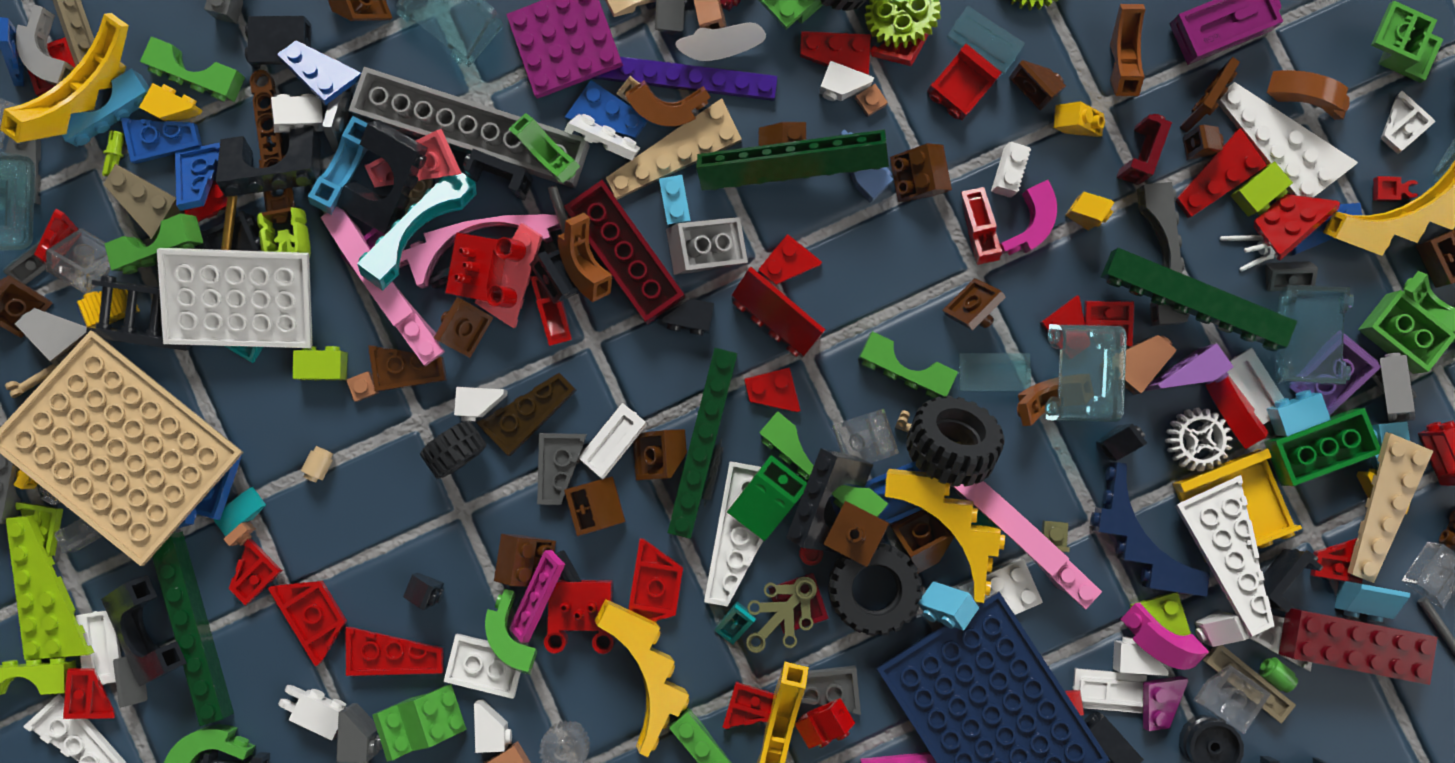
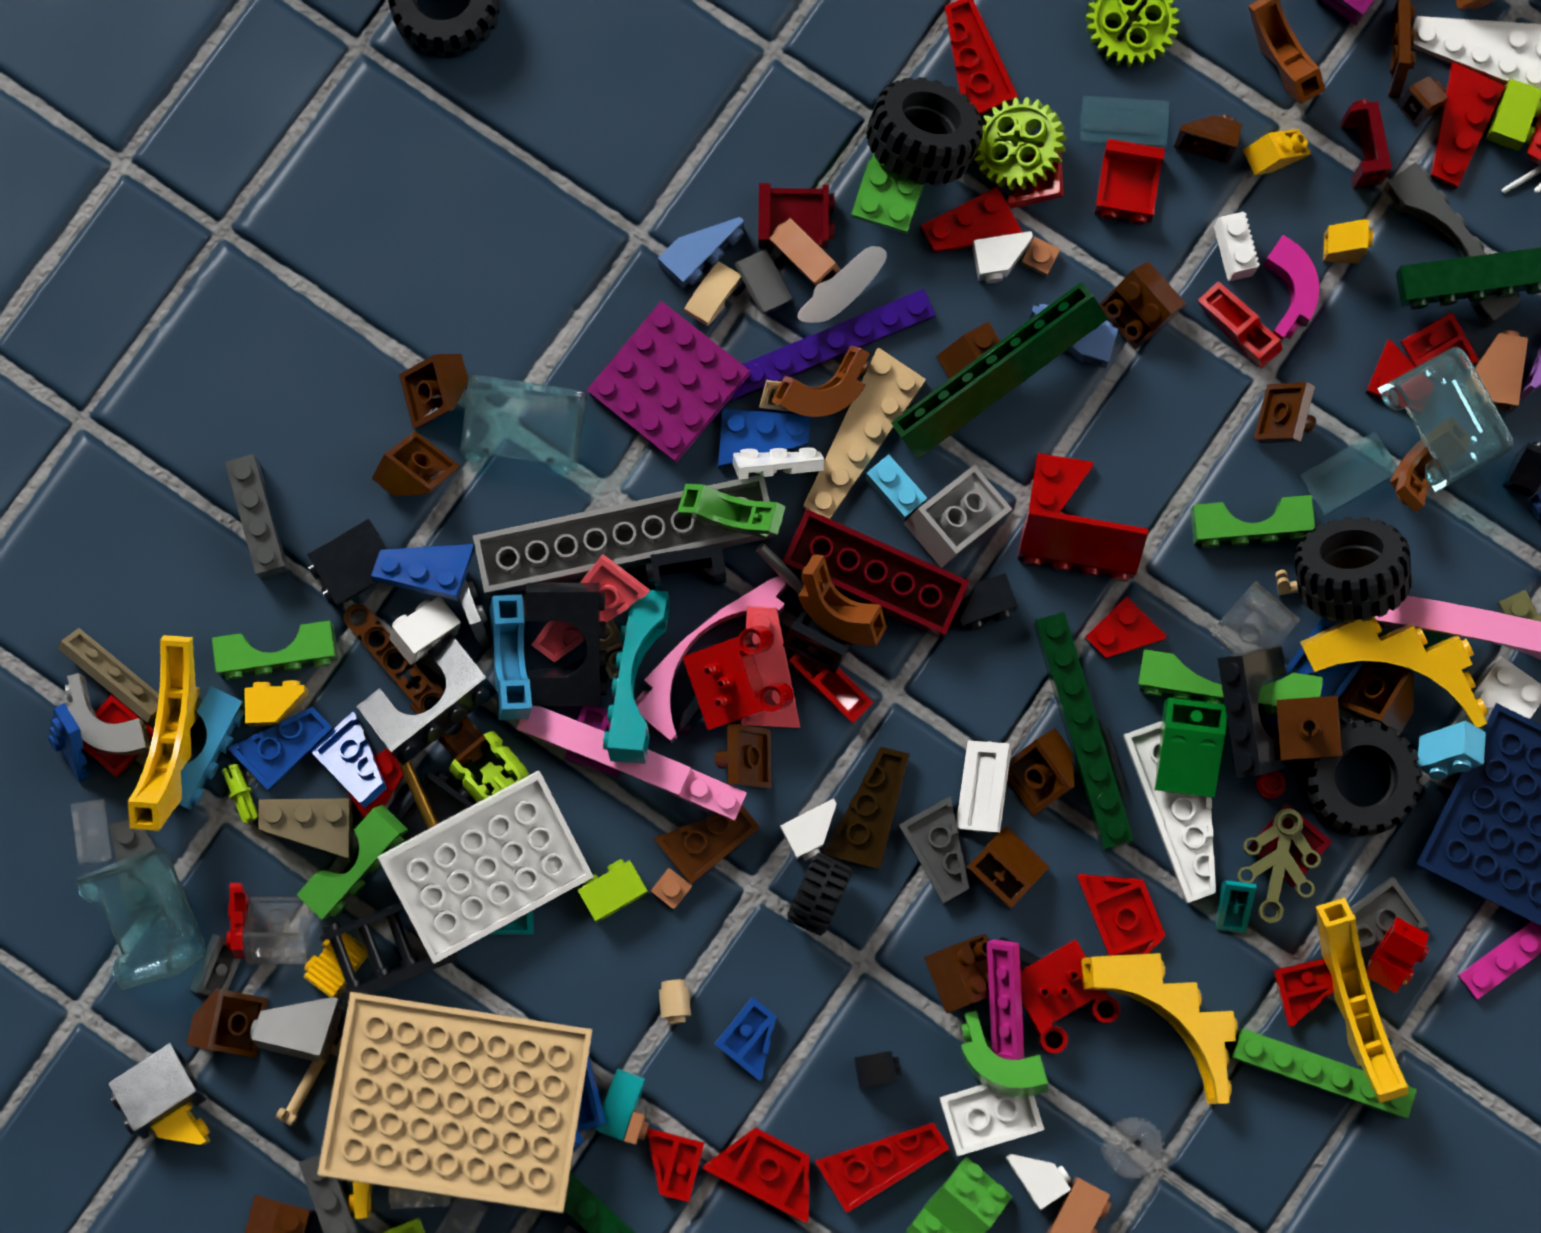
camera: 30 degrees left, 5 degrees down
(352, 518) = (749, 1037): none -> blue wing

